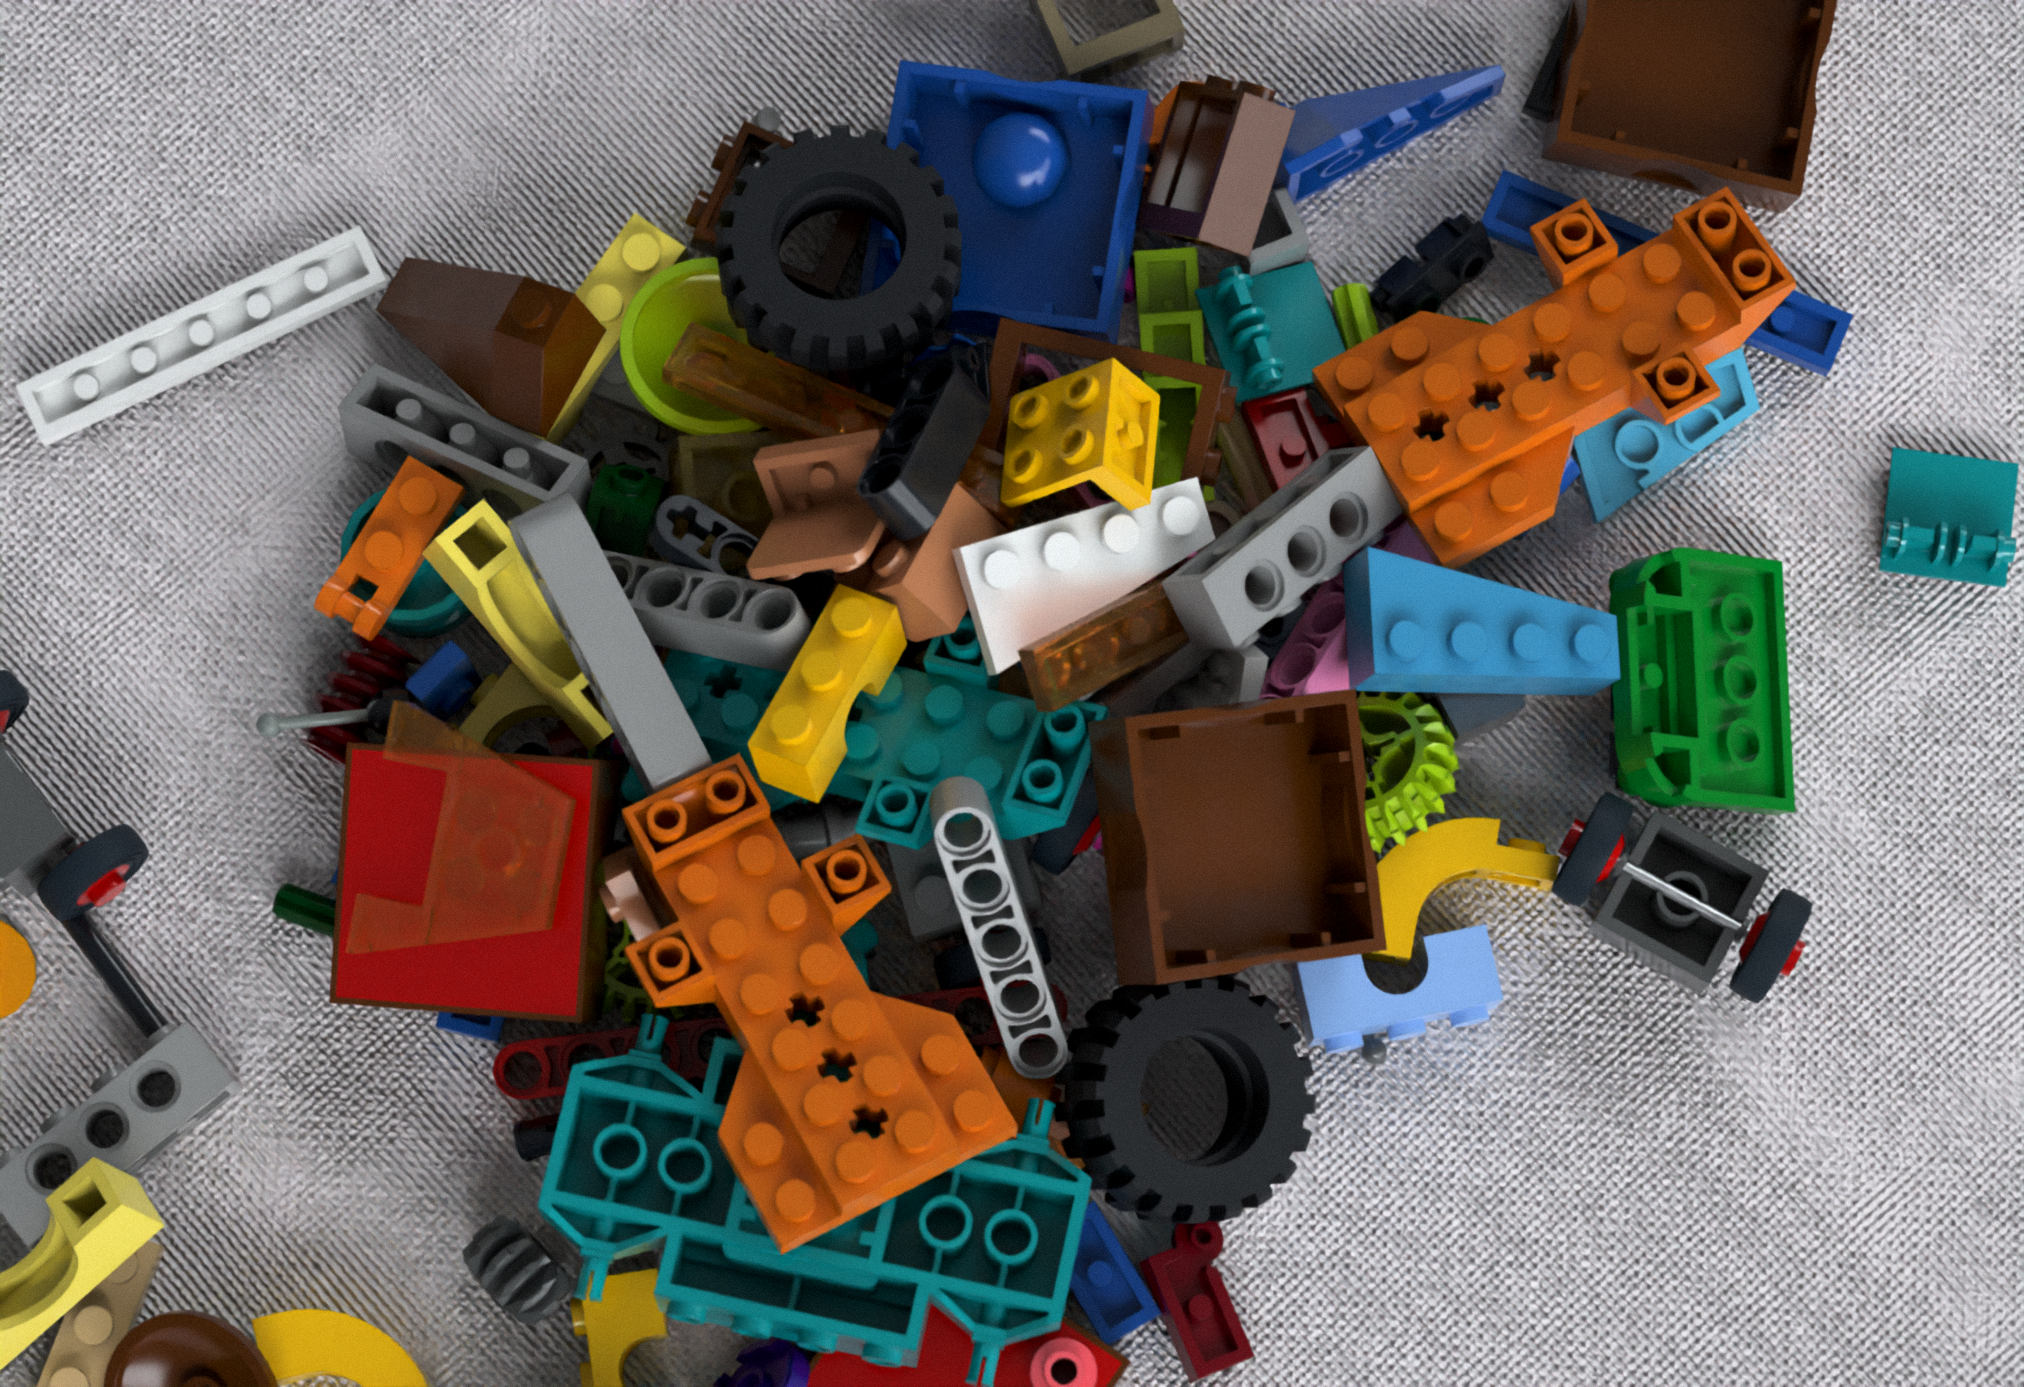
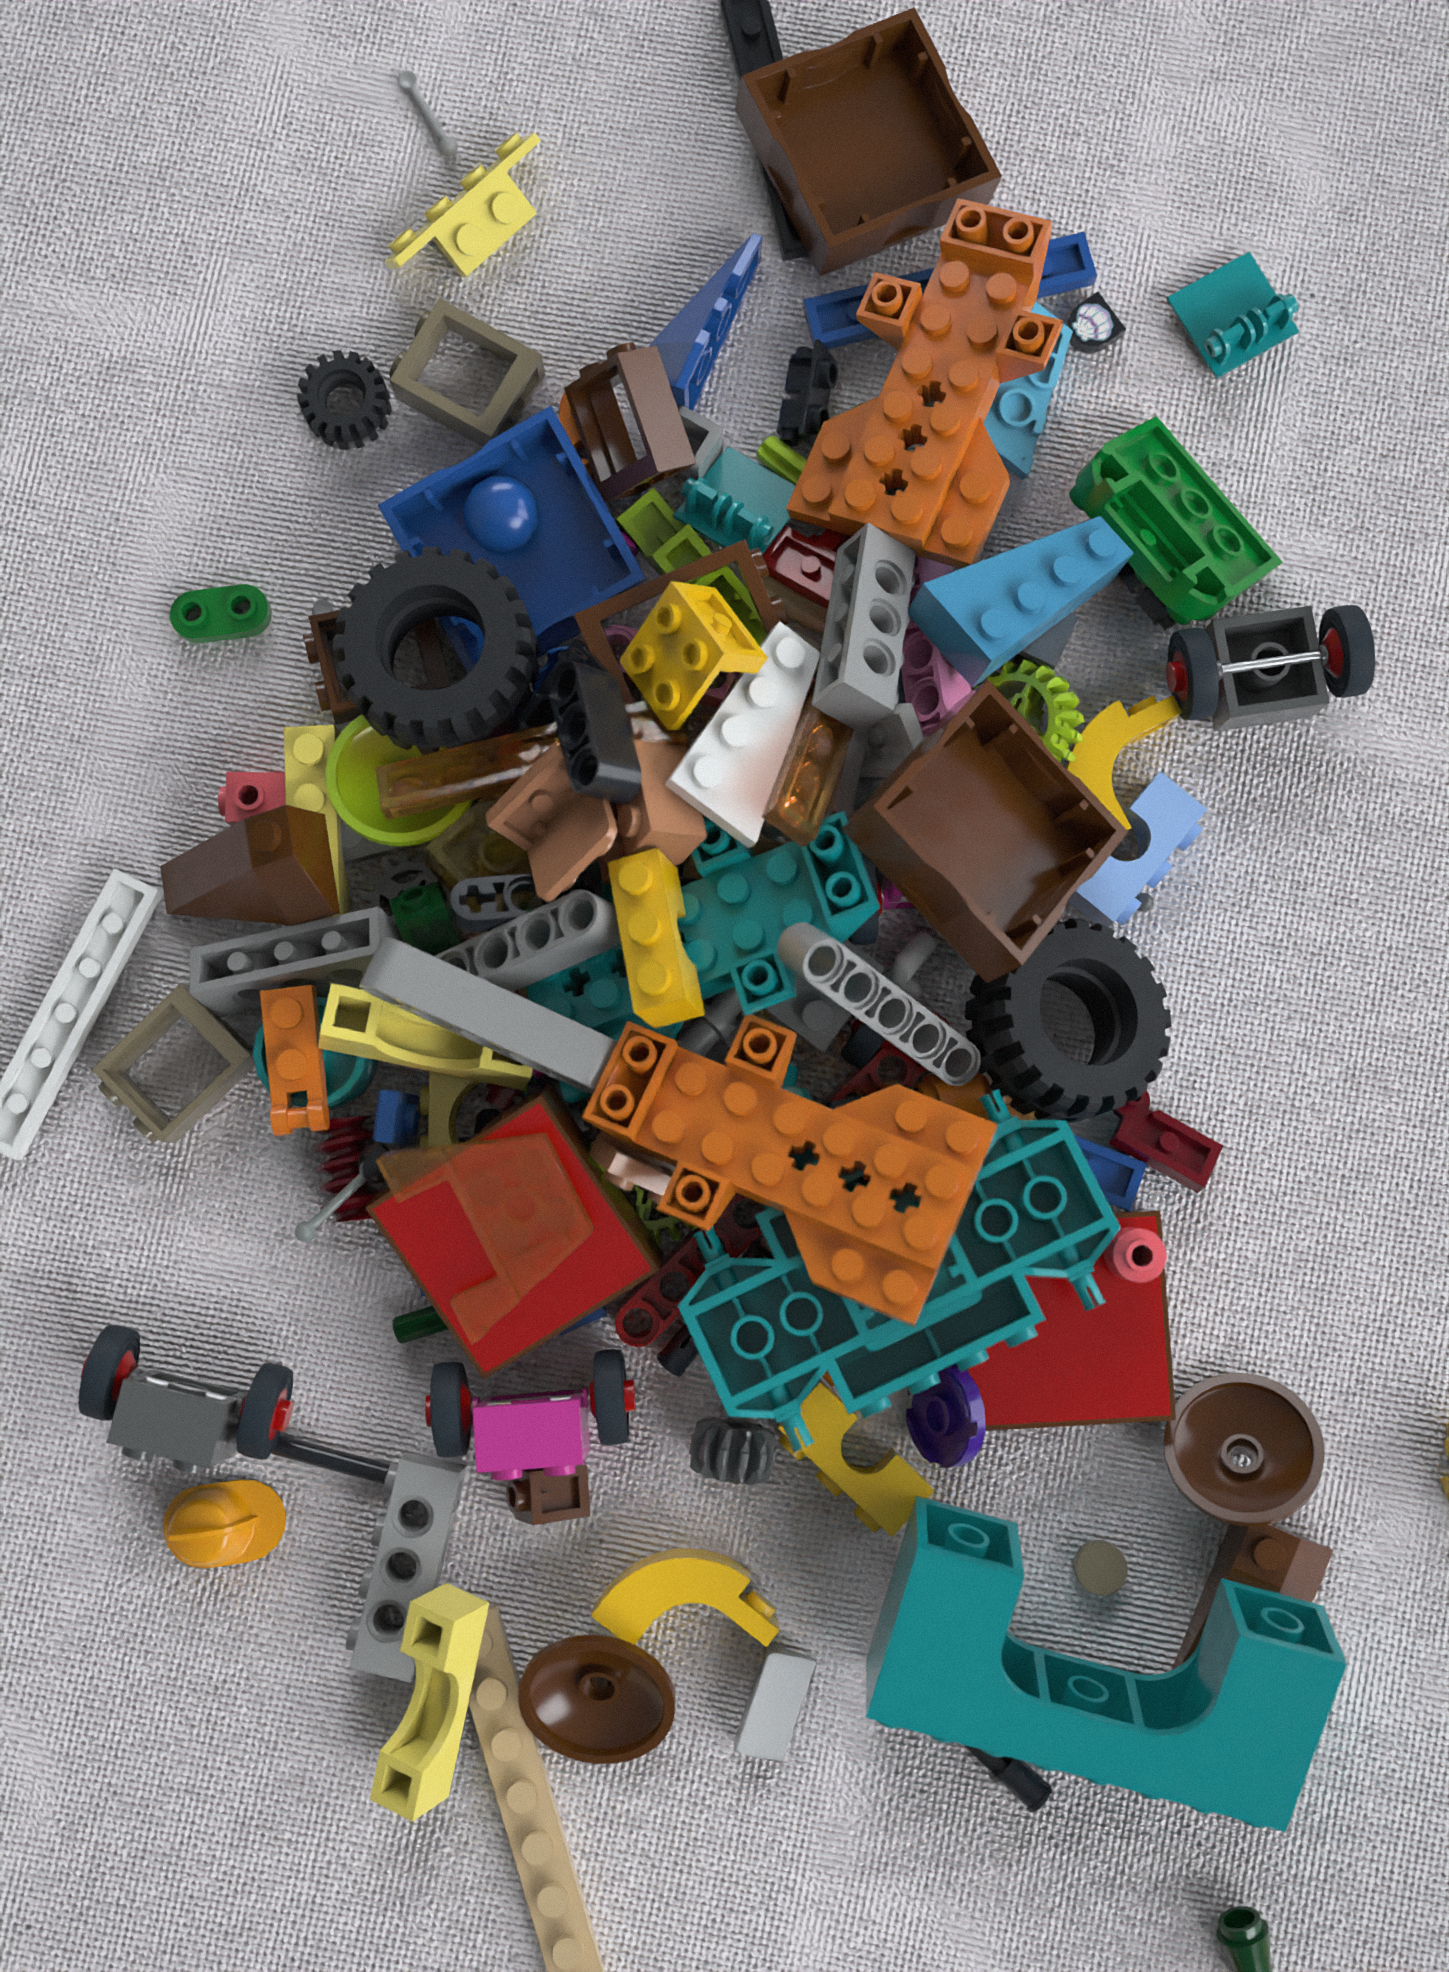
camera: 40 degrees left, 5 degrees up
(196, 451) = (122, 1090): none -> dark tan window
(304, 1174) = (549, 1499): none -> reddish brown bracket
(337, 1091) = (529, 1428): none -> brick
(549, 255) = (250, 794): none -> coral brick
(660, 47) = (218, 614): none -> green plate
(1072, 927) = (910, 960): none -> white arm
(1791, 419) = (1094, 325): none -> tile

